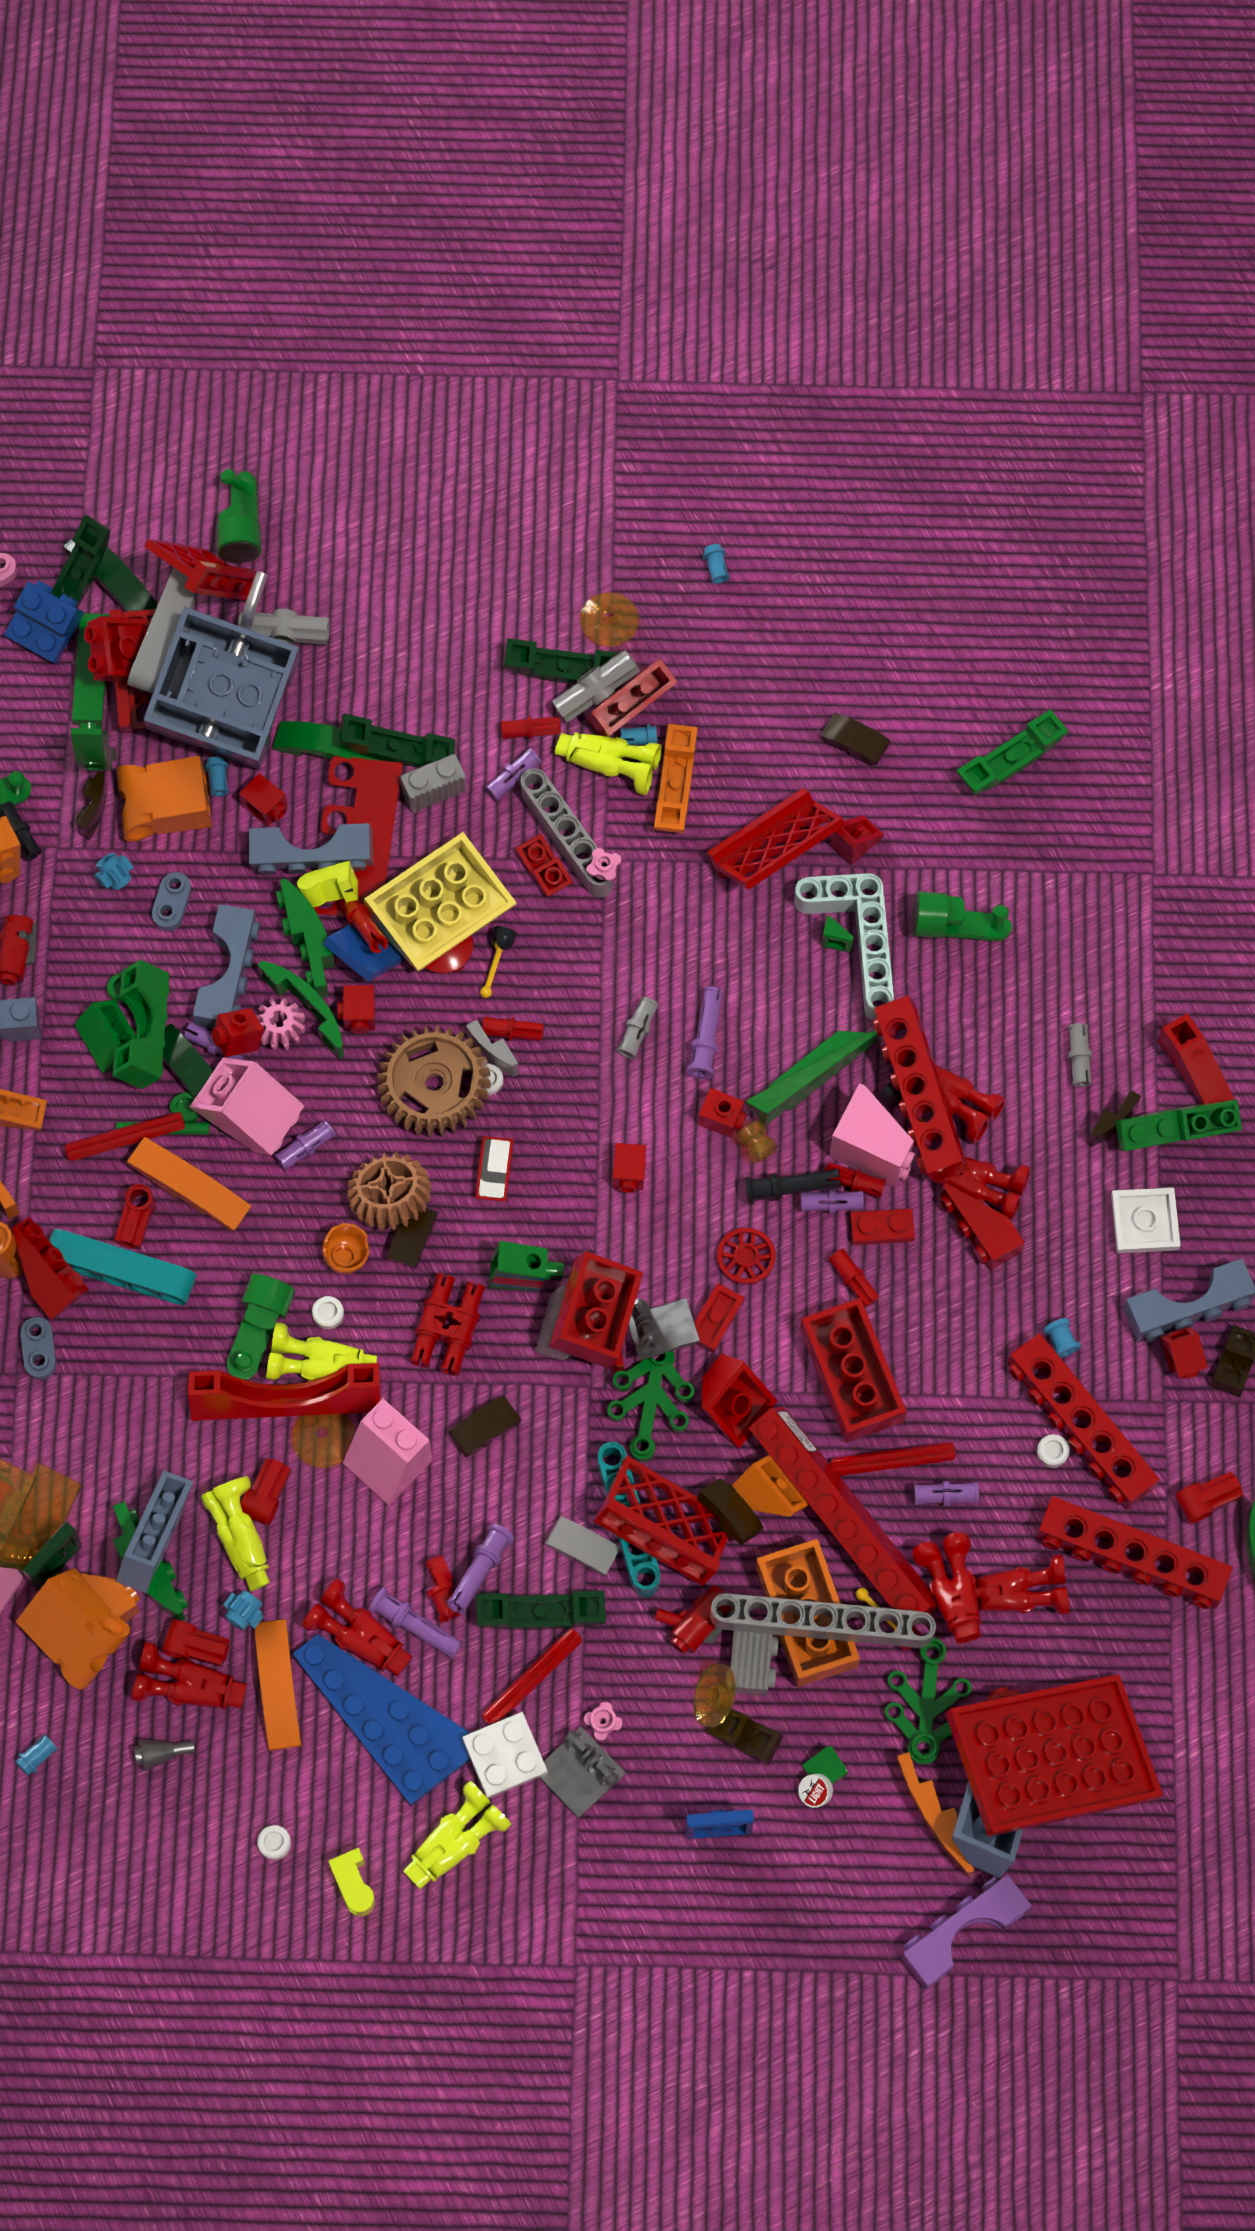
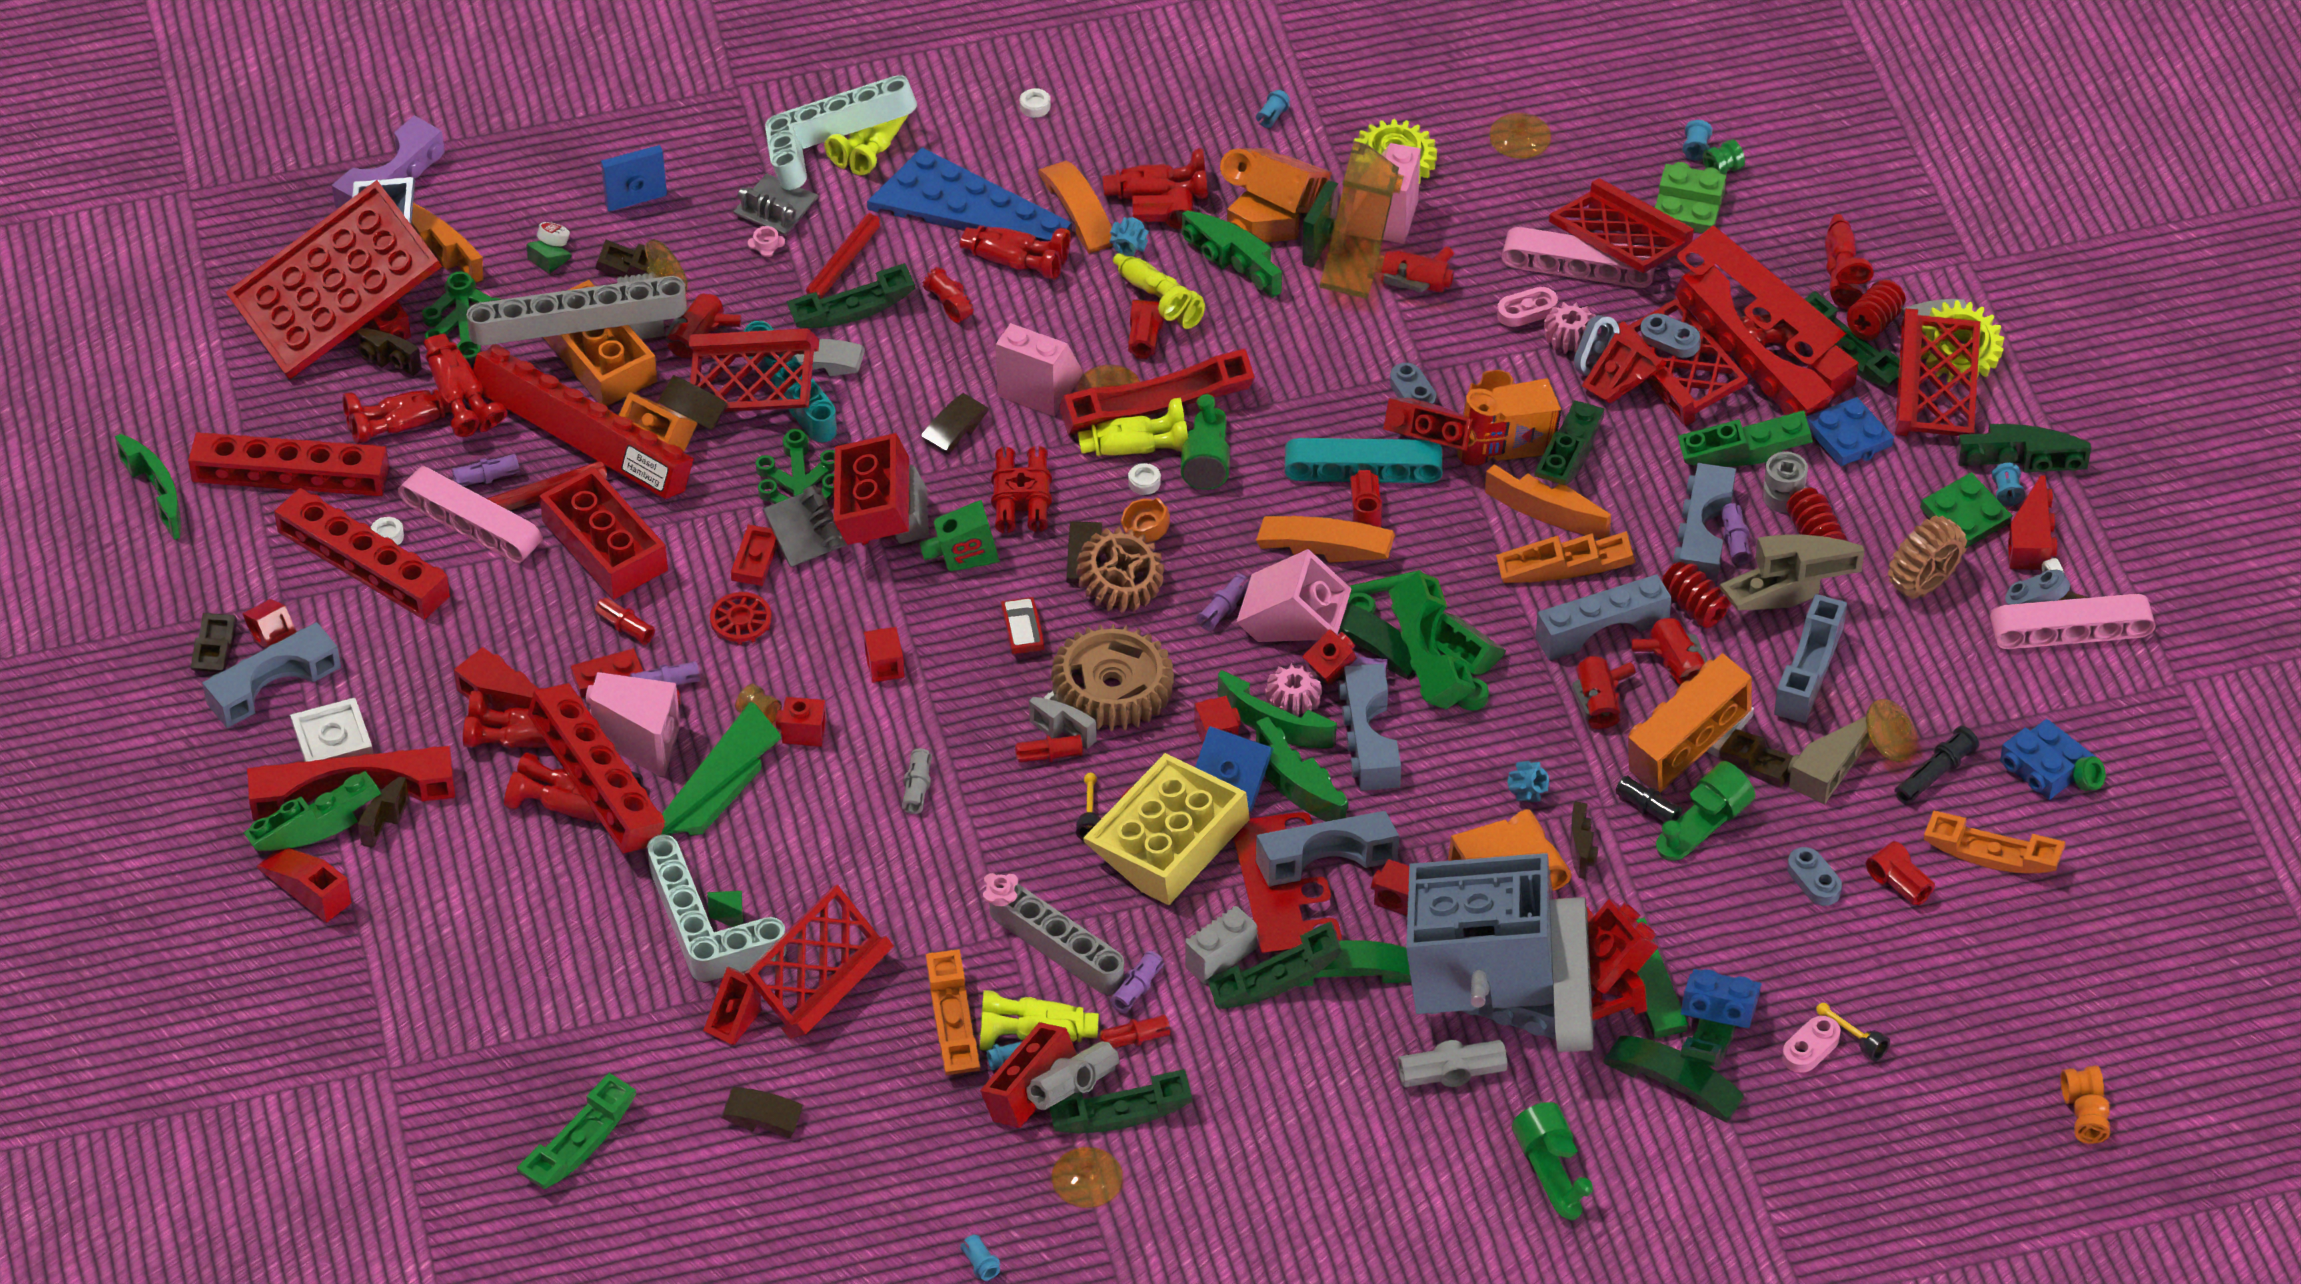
camera: 165 degrees right, 20 degrees down
(92, 747) = (1595, 846): green slope -> none
(124, 1136) = (1407, 561): red axle -> none
(153, 1753) = (1168, 130): flat silver cone -> none
(154, 1531) = (1230, 245): sand blue brick -> none
(173, 900) = (1457, 774): sand blue plate -> none
(205, 570) = (1538, 1036): red fence -> none
(329, 884) = (1280, 816): neon yellow leg -> none
(356, 1894) = (954, 85): neon yellow leg -> none
(360, 918) = (1239, 777): red pin -> none
(403, 1616) = (981, 271): medium lavender pin -> none
(486, 1557) = (916, 318): medium lavender pin -> none
(502, 1845) = (837, 114): none -> light aqua beam
(504, 1755) = (847, 192): white plate -> none
(543, 865) = (1068, 900): red slope -> none
(704, 1045) = (840, 779): medium lavender pin -> none
(734, 1397) = (718, 492): red slope -> none
(778, 1186) = (722, 669): black pin -> none
(945, 916) = (618, 947): green piece -> none
(972, 1441) = (470, 514): none -> bright pink beam
(1001, 1664) = (385, 347): none -> dark brown slope
(1062, 1337) = (401, 620): dark azure bush -> none
(1075, 1152) = (426, 772): none -> red arch
(1080, 1055) = (433, 864): light grey pin -> none
(1201, 1500) = (229, 518): red piece -> none

